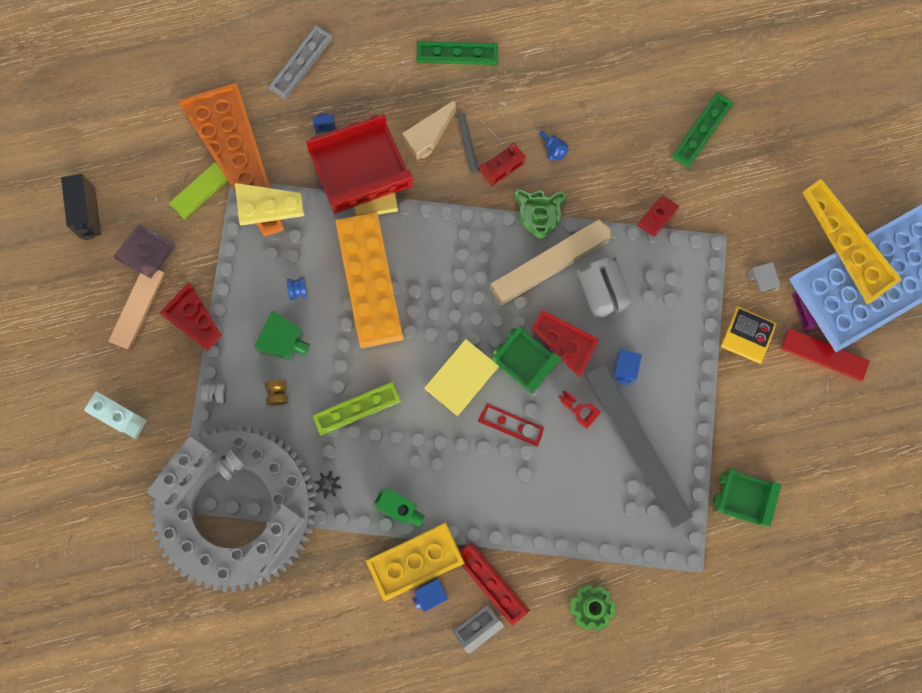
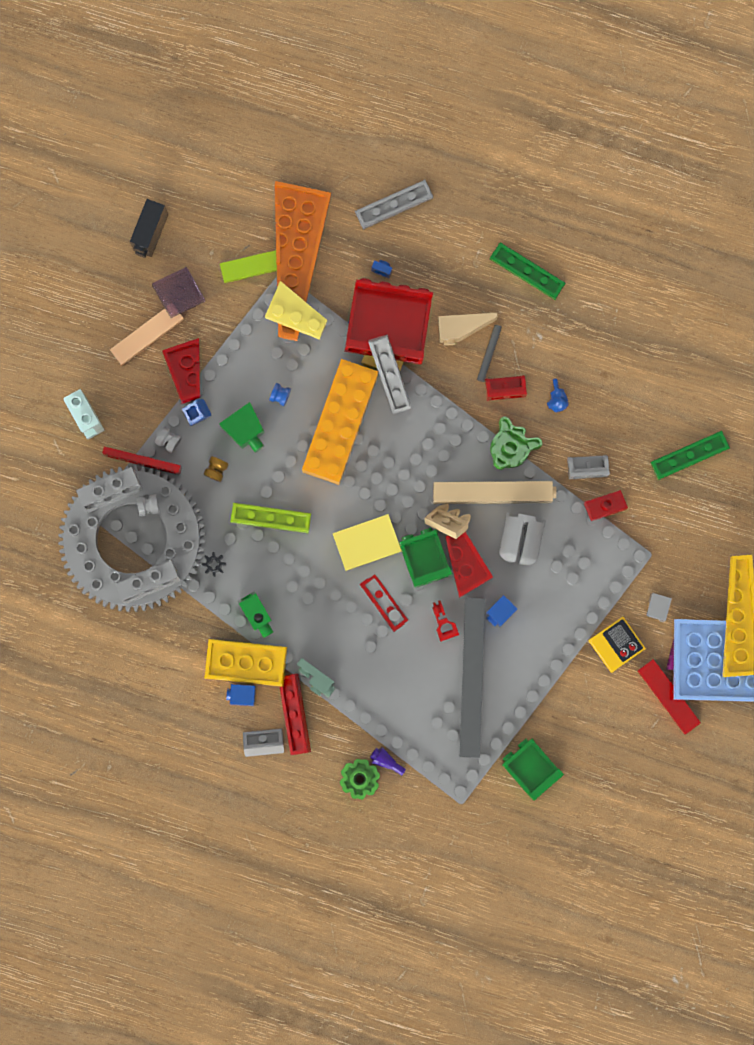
camera: 35 degrees right, 5 degrees up
(199, 426) = (142, 460): none -> red tile
(226, 350) = (196, 411): none -> blue slope
(389, 208) = (390, 374): none -> light grey tile
(499, 536) = (319, 682): none -> sand green plate
(526, 312) = (448, 521): none -> tan plate
(601, 574) = (382, 758): none -> dark purple cone
(621, 191) = (588, 467): none -> light grey hinge

